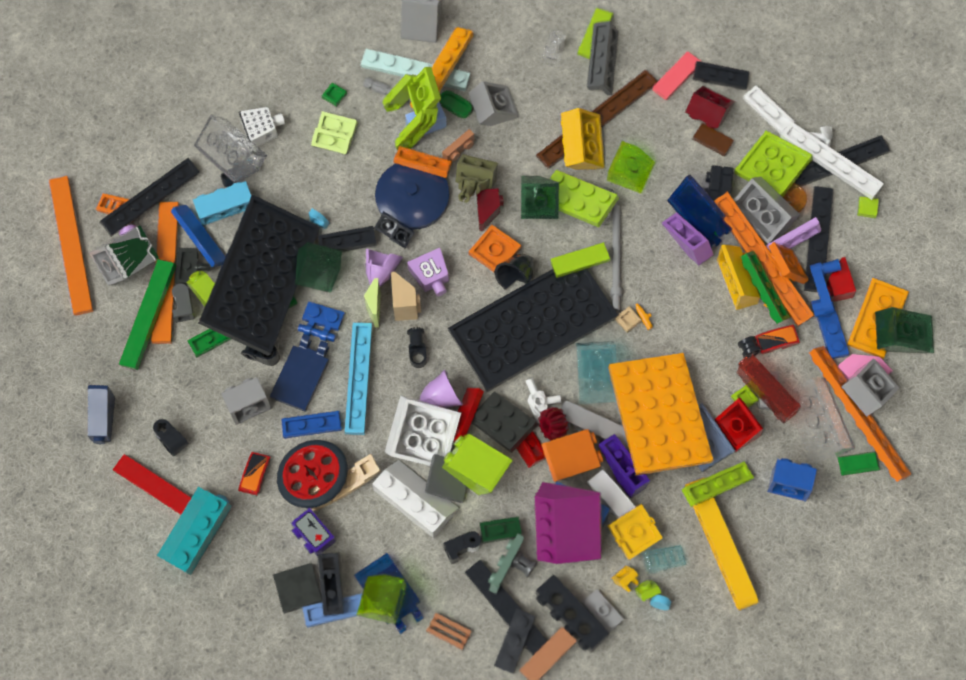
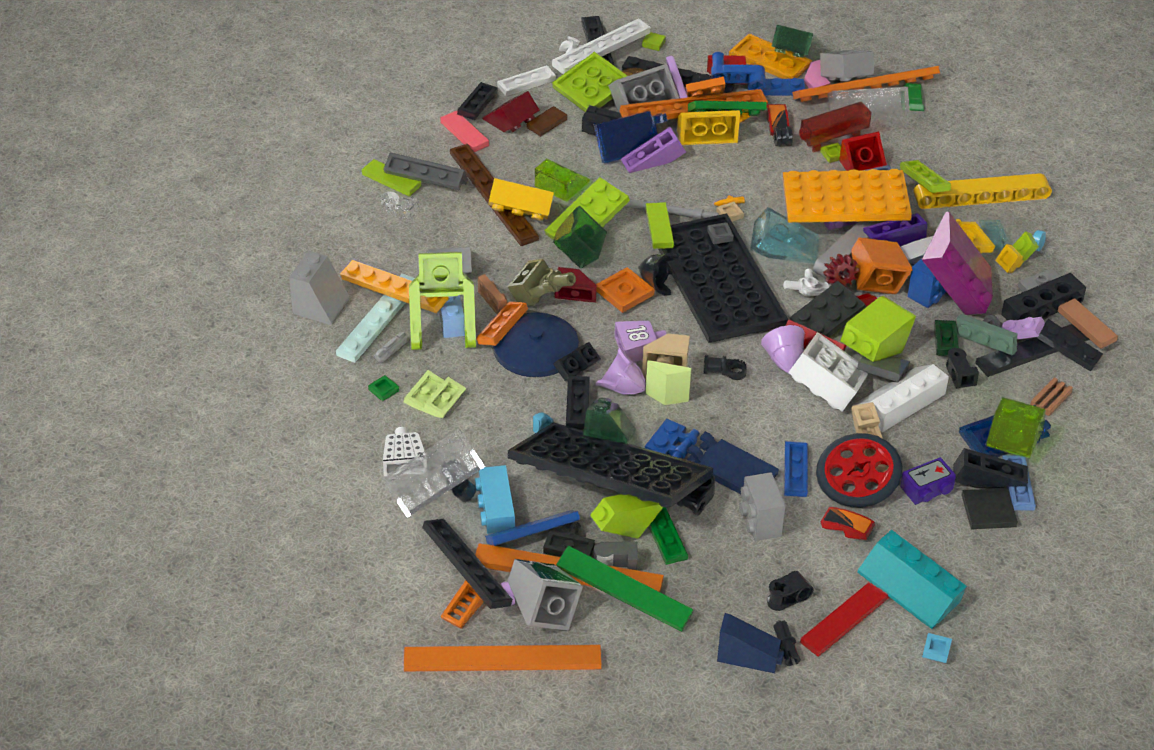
camera: 80 degrees left, 25 degrees down
(117, 443) = (787, 642): none -> black axle
(131, 559) = (937, 648): none -> medium azure plate
(358, 379) = (750, 418): medium azure plate -> none
(522, 594) = (1026, 327): none -> lavender plate
(584, 313) = (720, 233): none -> dark grey tile
(792, 479) = (929, 129): blue brick -> none

